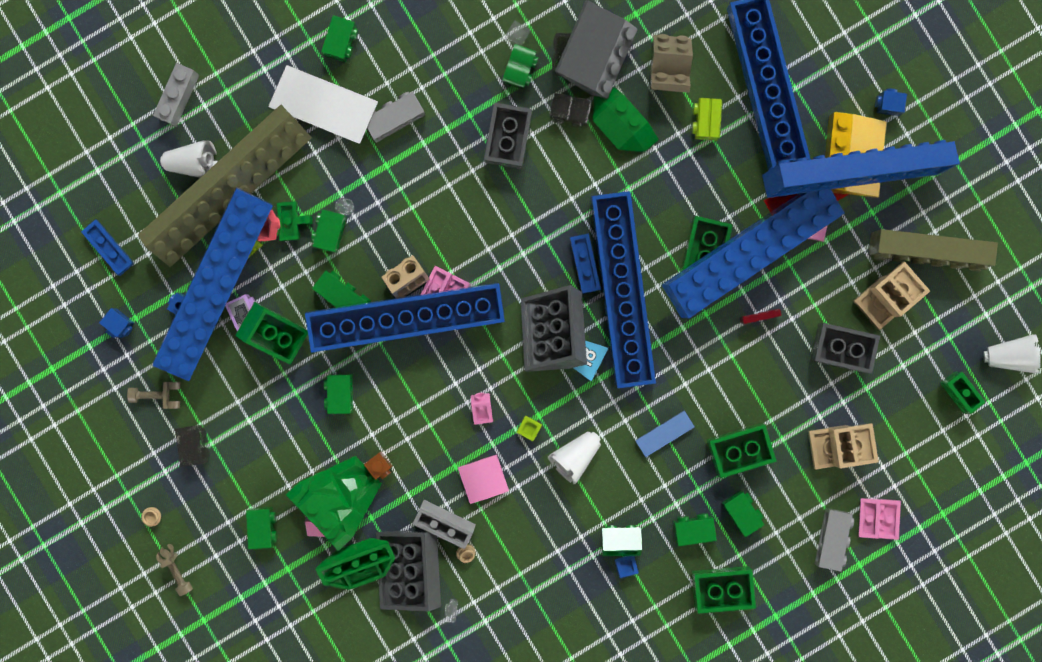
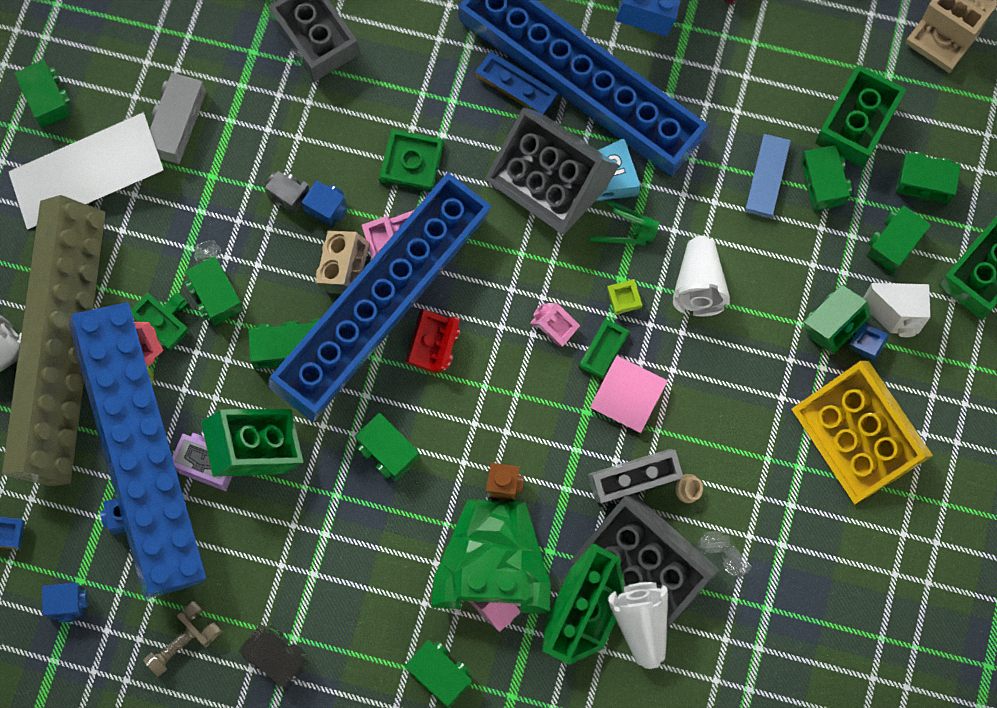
camera: 45 degrees left, 15 degrees down
(379, 596) = (643, 621): none -> white cone
(412, 361) = (433, 342): none -> red bracket
(414, 211) = (286, 191): none -> flat silver brick
(427, 237) = (325, 203): none -> blue brick
(451, 590) = (713, 542): none -> clear plate
(493, 253) = (411, 160): none -> green tile
(494, 444) = (604, 349): none -> green tile
(573, 403) = (645, 227): none -> green plant
(577, 607) = (861, 431): none -> yellow slope
(657, 569) = (899, 306): none -> white slope
(691, 464) = (825, 177): none -> green brick

